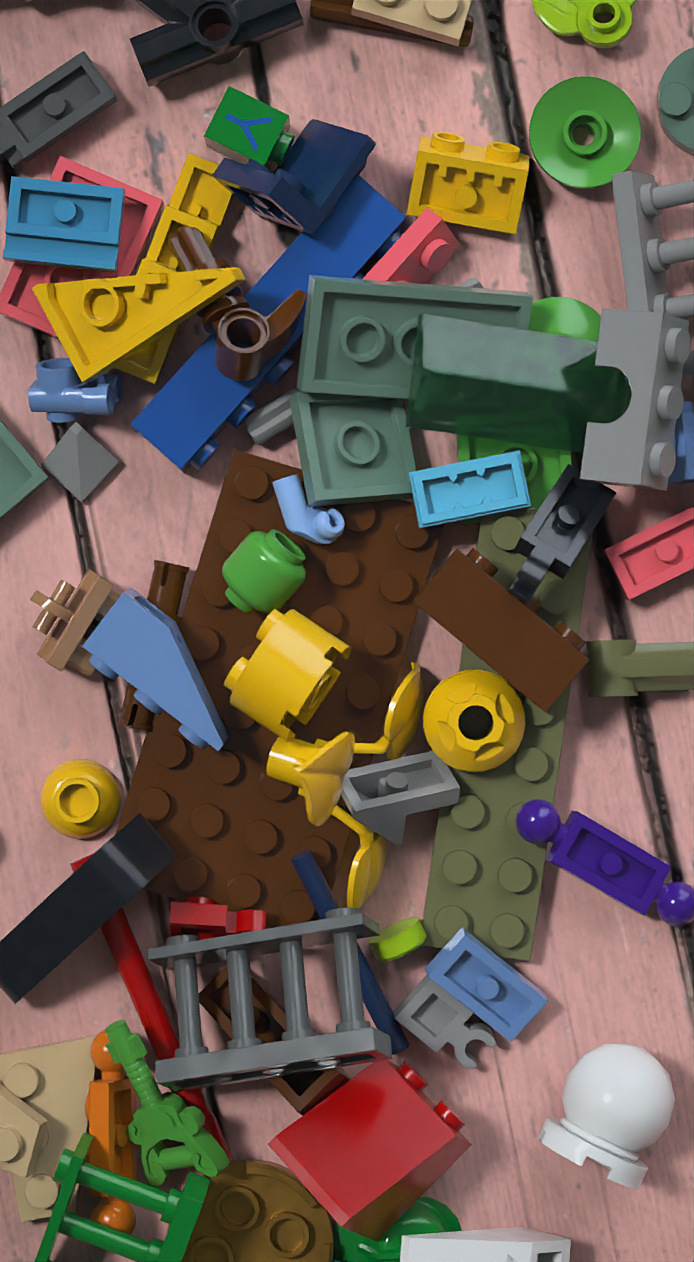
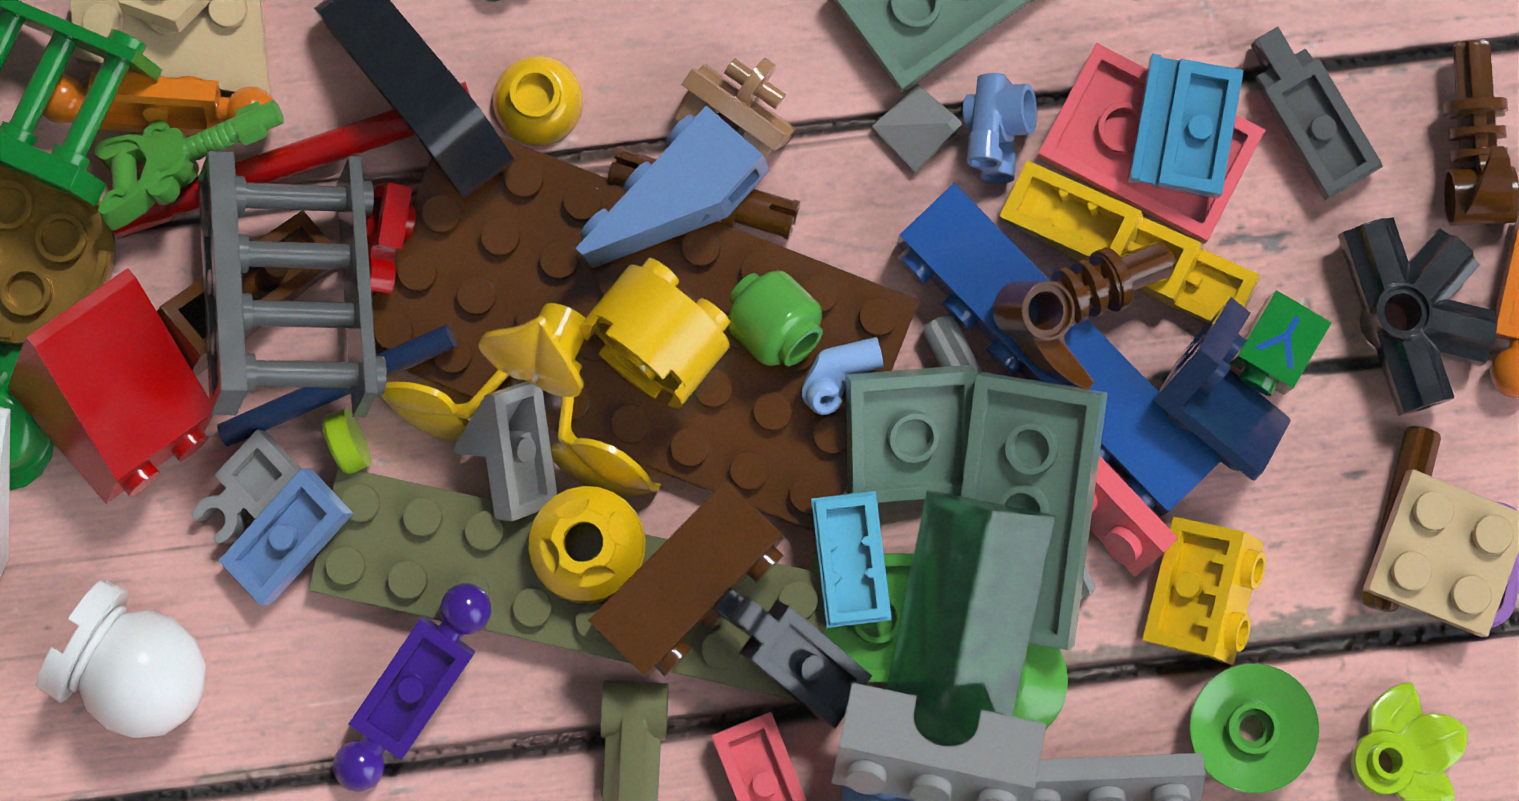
camera: 90 degrees right, 5 degrees down
(116, 317) = (1076, 176): yellow wing -> none

